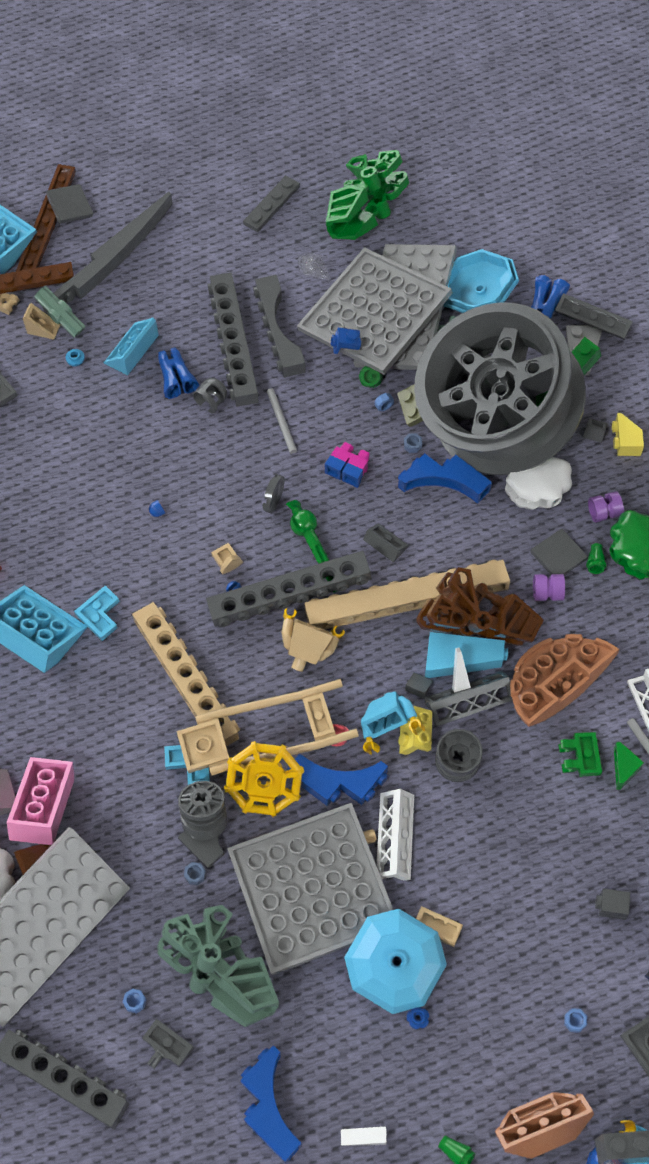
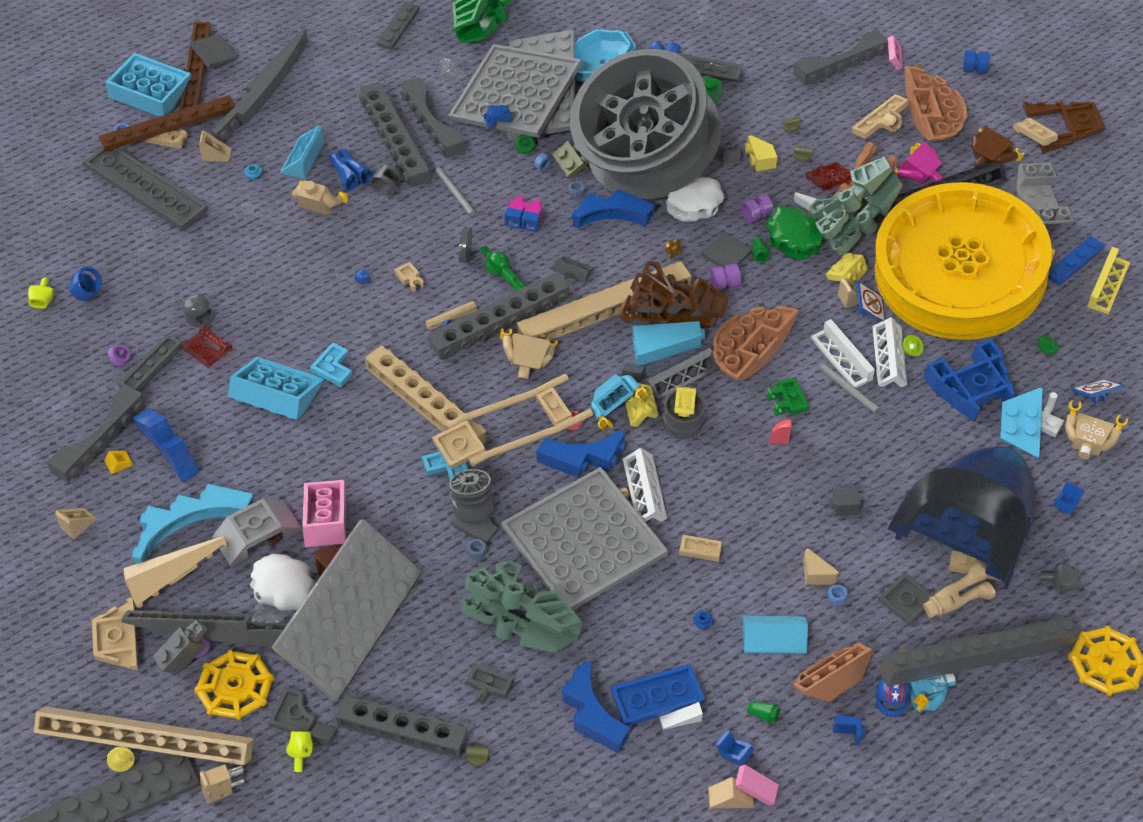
camera: 15 degrees left, 10 degrees down
(59, 312) = (230, 135): sand green piece -> none
(131, 404) = (317, 197): none -> tan torso
(133, 1131) = (477, 755): none -> olive plate
(134, 1001) = (450, 656): medium blue tile -> none
(206, 517) = (408, 274): none -> tan plate
(226, 558) = (435, 304): tan tile -> none
(239, 575) = (453, 314): none -> tan axle
(264, 767) = (511, 452): yellow plate -> none
(344, 1103) = (657, 695): none -> blue plate
(372, 967) = (667, 594): medium azure rock -> none
(460, 676) = (668, 353): white piece -> none
(460, 746) = (685, 401): none -> light yellow bracket
(493, 1054) = (775, 634): none -> medium azure slope
(500, 538) = (673, 248): none -> pearl gold plate
(559, 985) = (817, 570): none -> tan slope
(563, 799) = (781, 432): none -> coral brick
(626, 765) = (827, 397): green slope -> none

